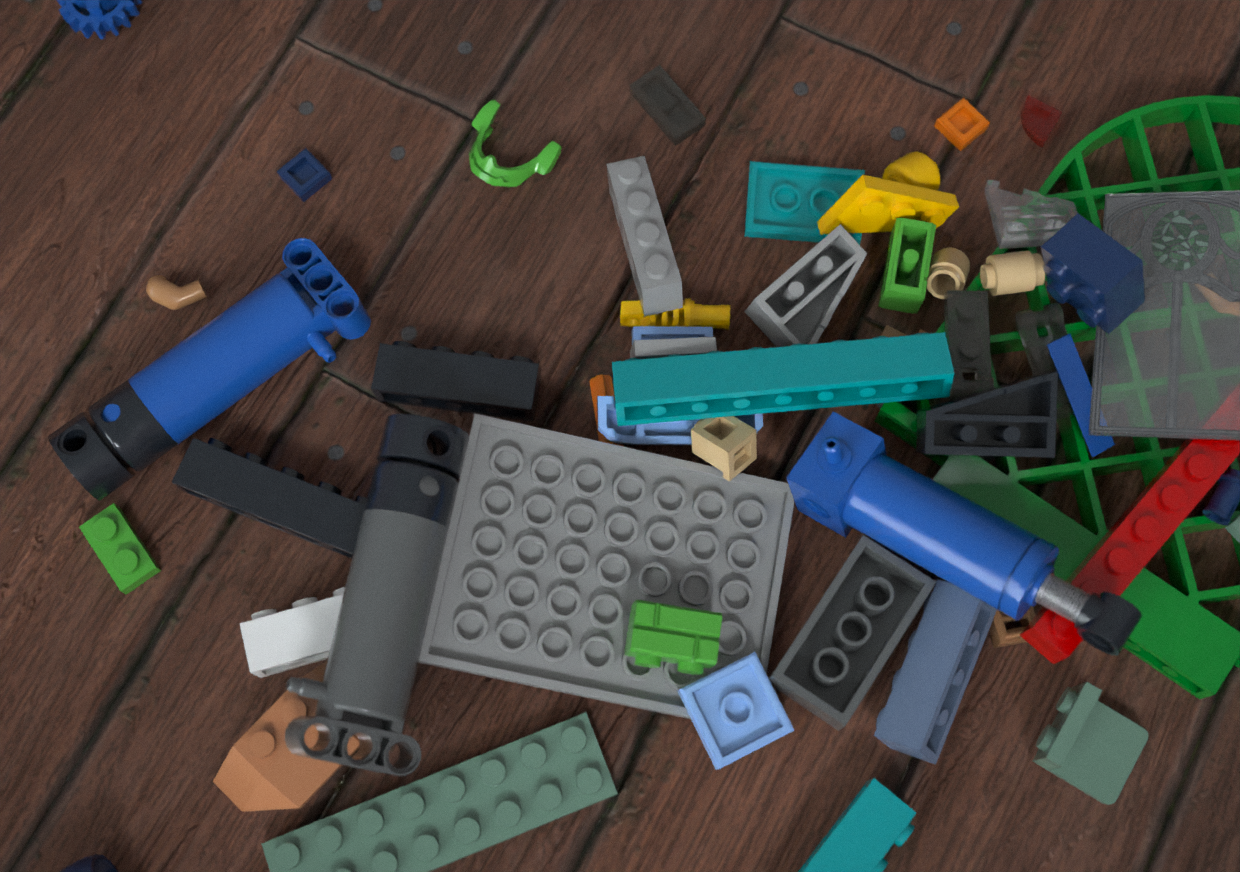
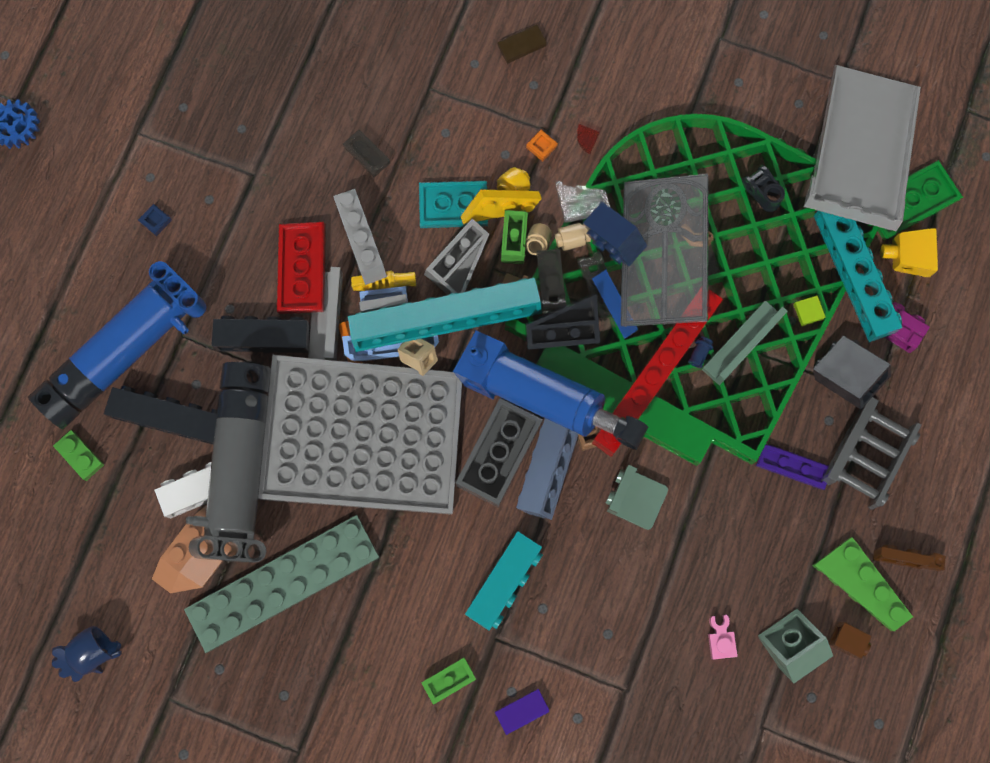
camera: 10 degrees left, 5 degrees up
(173, 296) = (87, 303): medium nougat arm -> none
(486, 166) = (263, 204): bright green helmet -> none
(537, 279) = (301, 268): none -> red tile
(570, 359) = (325, 324): none -> light grey panel
(673, 636) = (399, 467): bright green brick -> none
(735, 710) = (438, 503): light blue tile -> none

